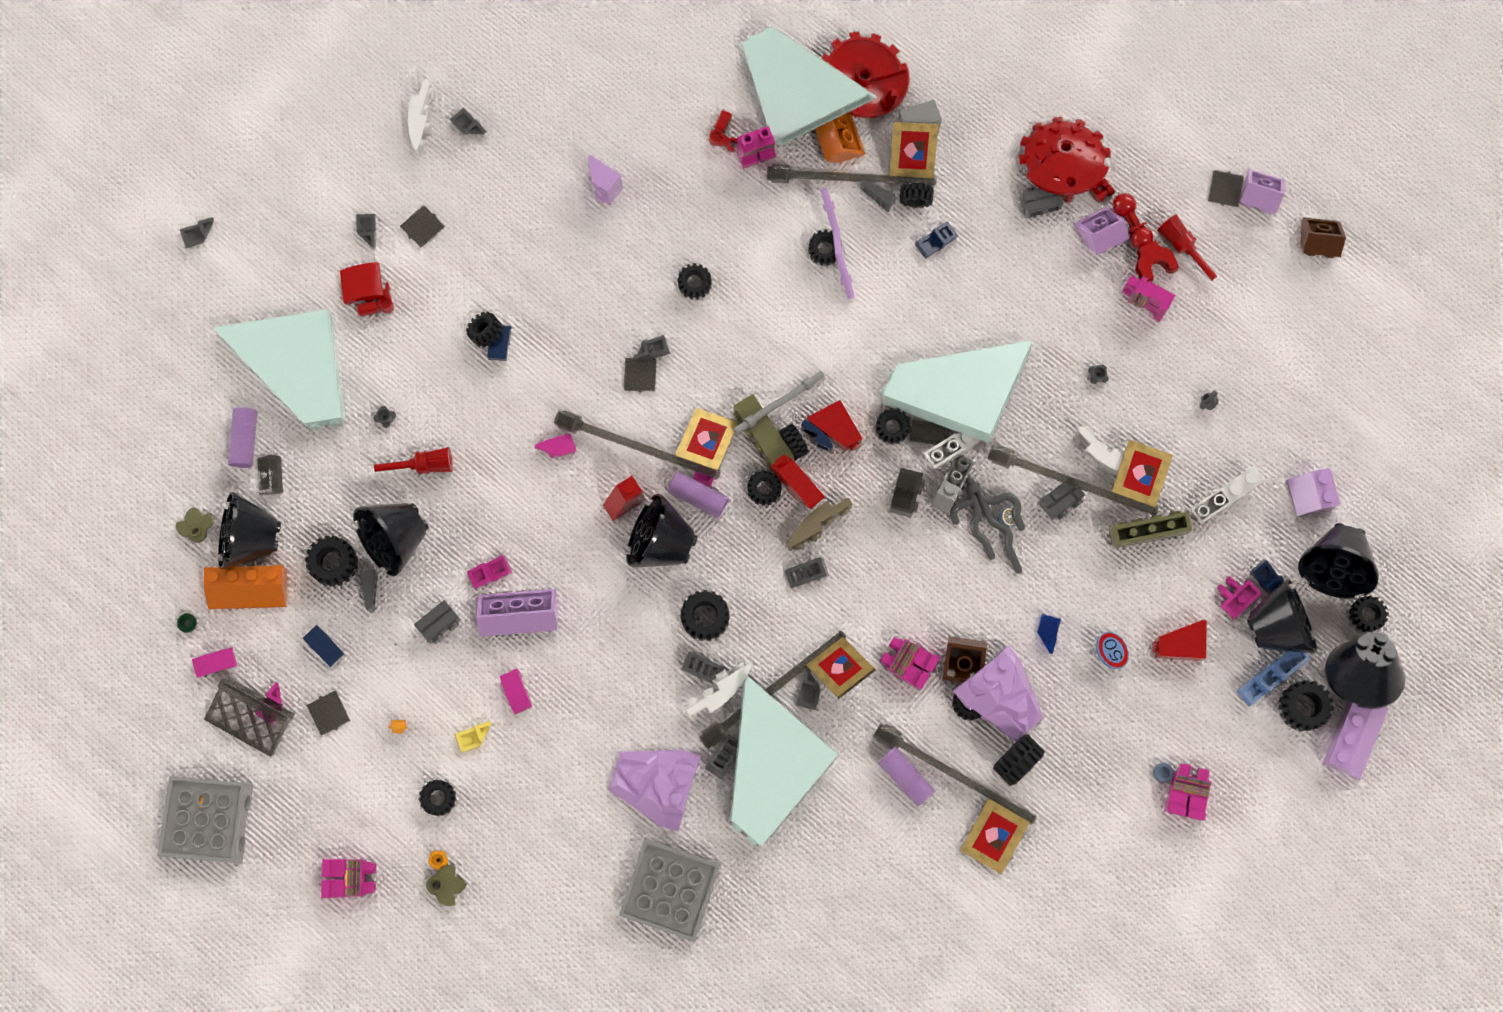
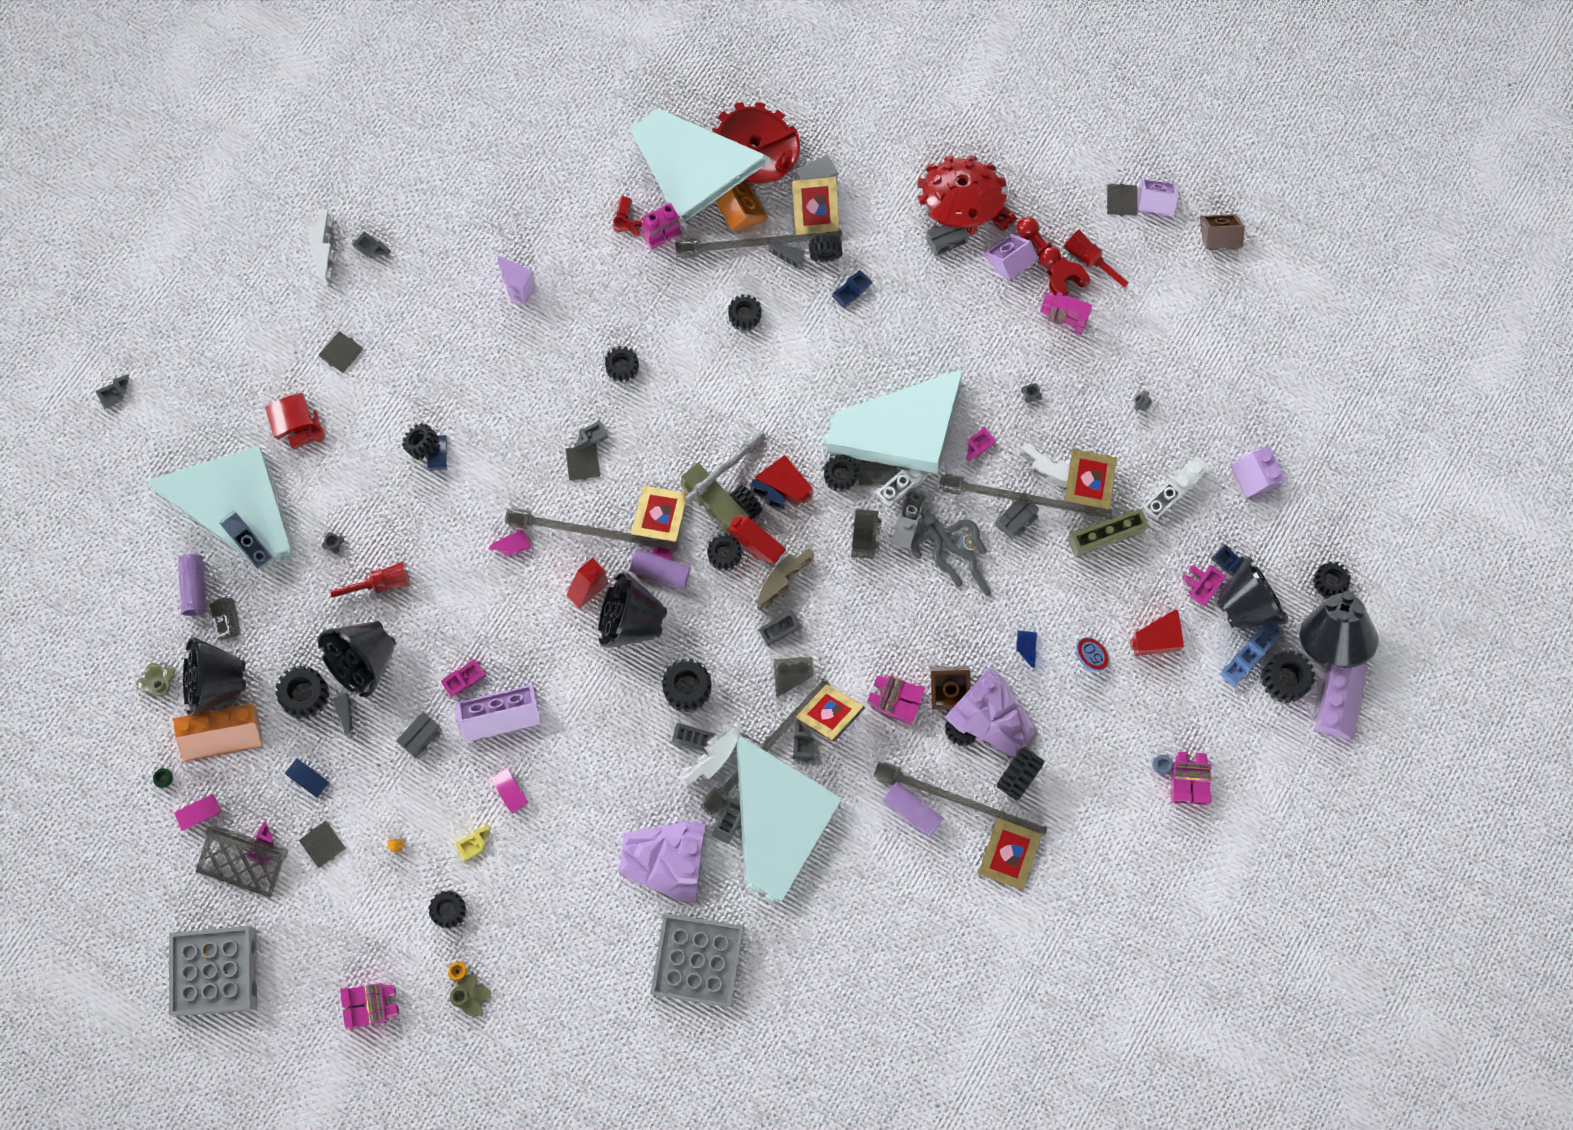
camera: 15 degrees left, 5 degrees down
(299, 402) = (245, 539): none -> sand blue slope
(367, 228) = (285, 361): dark grey slope -> none
(809, 620) = (791, 673): none -> clear smoke wing
(829, 207) = (742, 272): lavender bar -> none
(1036, 417) = (979, 443): none -> dark pink slope
(1340, 563) = (1296, 535): black cone -> none

